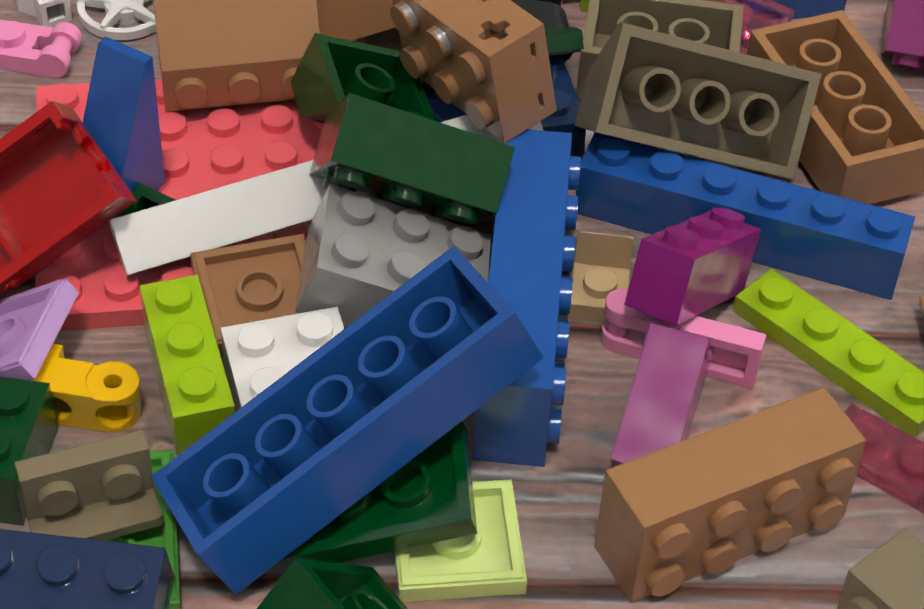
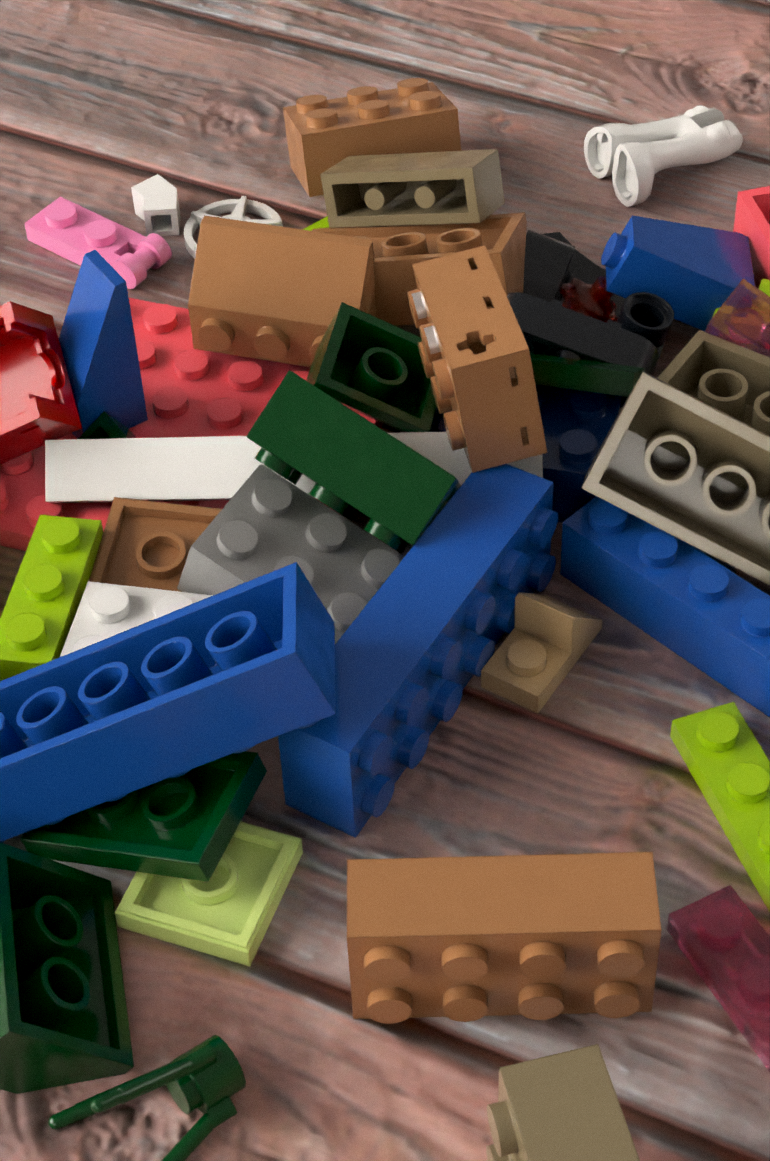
camera: 30 degrees right, 0 degrees up
(662, 393) = (504, 801): magenta slope -> none
(692, 266) = (615, 669): magenta brick -> none
(732, 349) = (578, 750): bright pink plate -> none

